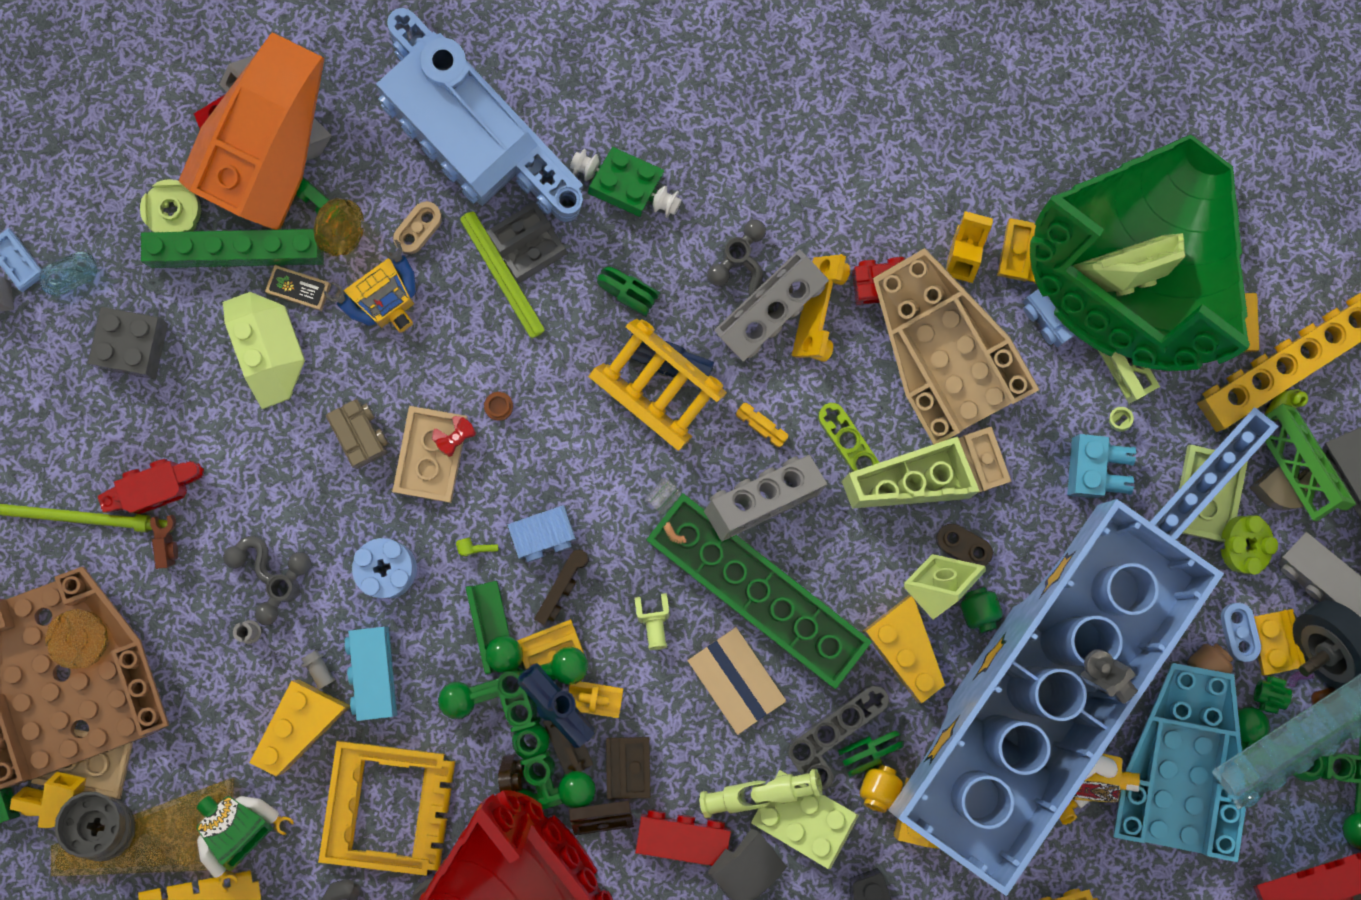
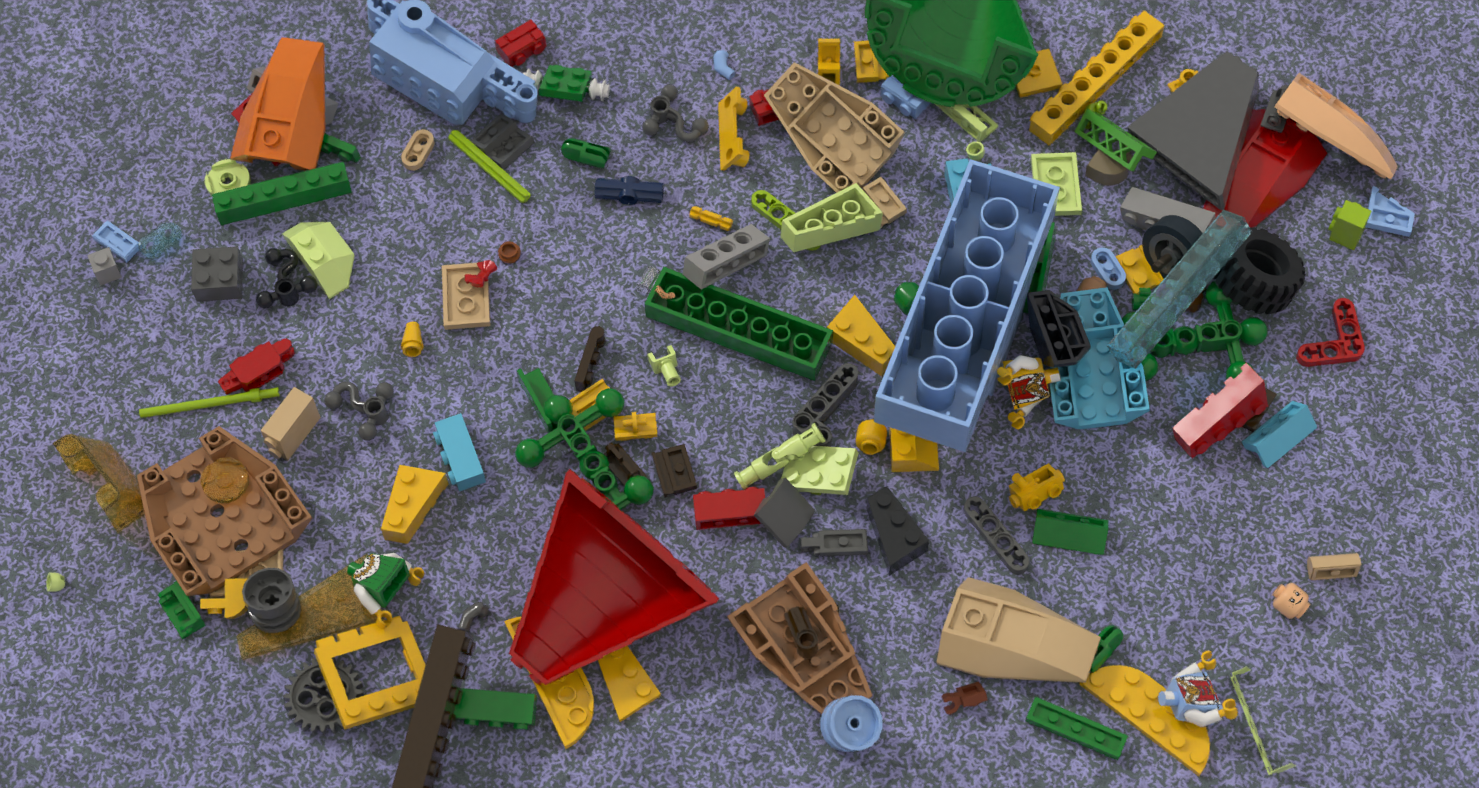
camera: 10 degrees left, 20 degrees down
(164, 548) = (274, 394): copper plate -> none
(170, 586) = (290, 424): none -> tan brick
(237, 386) = (307, 284): none -> black piece
(254, 632) = (355, 443): light grey pin -> none
(297, 288) = (337, 211): tile -> none
(317, 669) = (414, 459): light grey pin -> none
(338, 227) = (359, 158): clear yellow tile -> none
(344, 804) = (460, 545): yellow hinge -> none
(350, 498) = (412, 340): none -> yellow cone
(357, 434) = (407, 294): dark tan brick -> none
(369, 560) = (451, 377): light blue brick -> none
(381, 293) = (401, 197): torso -> none
(466, 547) = (510, 353): lime hand -> none
(542, 533) = (565, 326): light blue brick -> none
(567, 717) = (607, 428): dark blue piece -> none
(583, 107) = (521, 44): none -> red brick
(601, 818) = (663, 506): dark brown plate -> none
(631, 394) = (628, 225): yellow fence -> none
(736, 680) = (740, 393): tan tile -> none
(774, 289) = (672, 158): light grey brick -> none
(830, 204) = (720, 64): none -> light blue arm
(871, 751) = (855, 413): green arm -> none
(942, 583) = (876, 285): yellowish green slope -> none
(964, 545) = (885, 262): dark brown plate -> none
(1109, 675) = (995, 261): dark grey hips -> none
(1135, 264) = (949, 40): yellowish green wedge -> none
(1156, 737) = (1056, 330): none -> black wedge
(1214, 473) = (1057, 148): light blue brick -> none
(1260, 549) = (1104, 207): lime plate -> none

